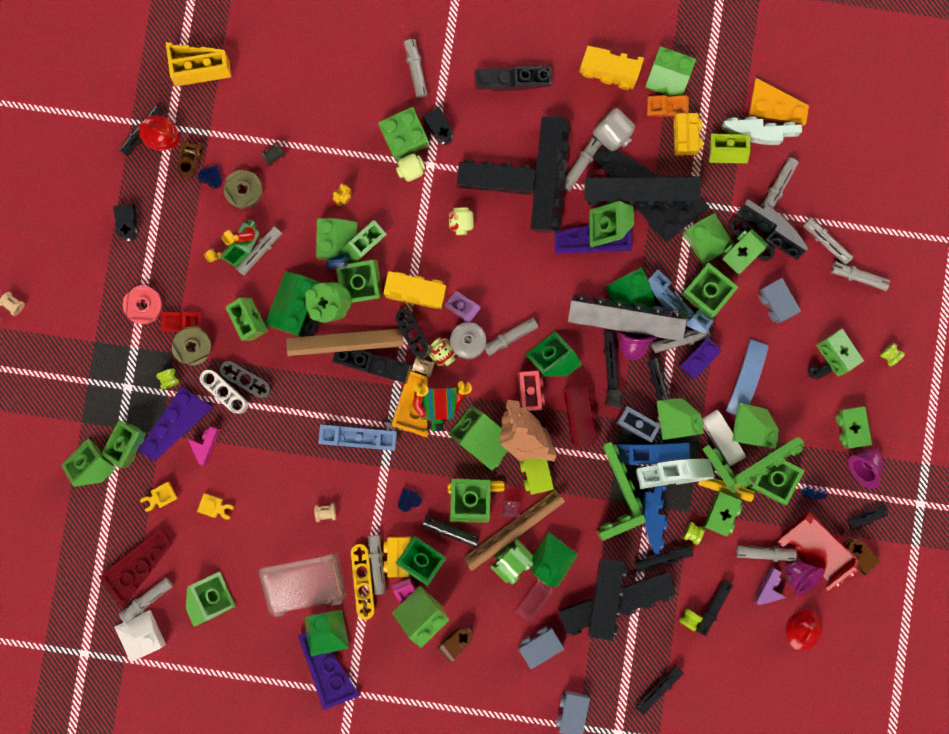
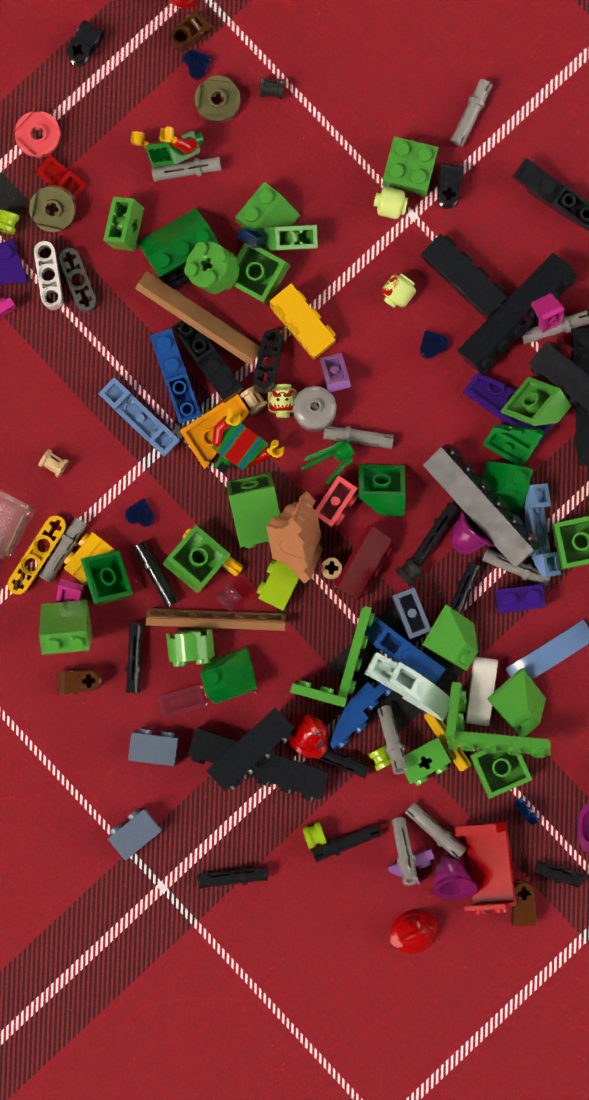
camera: 40 degrees right, 0 degrees up
(342, 195) = (306, 178): yellow plate -> none
(359, 391) = (175, 375): none -> blue slope
(493, 616) = (134, 654): none -> black pin
(507, 355) = (340, 451): none -> green plant
(510, 238) = (432, 344): none -> clear blue tile
(561, 442) = (326, 572): none -> tan bush
(570, 156) = (549, 312): none -> dark pink slope
(614, 260) = (513, 442): none -> green wing
(637, 557) = (310, 736): none -> red piece
(699, 522) = (394, 747): none -> light grey pin
(765, 588) = (406, 859): none -> light grey pin

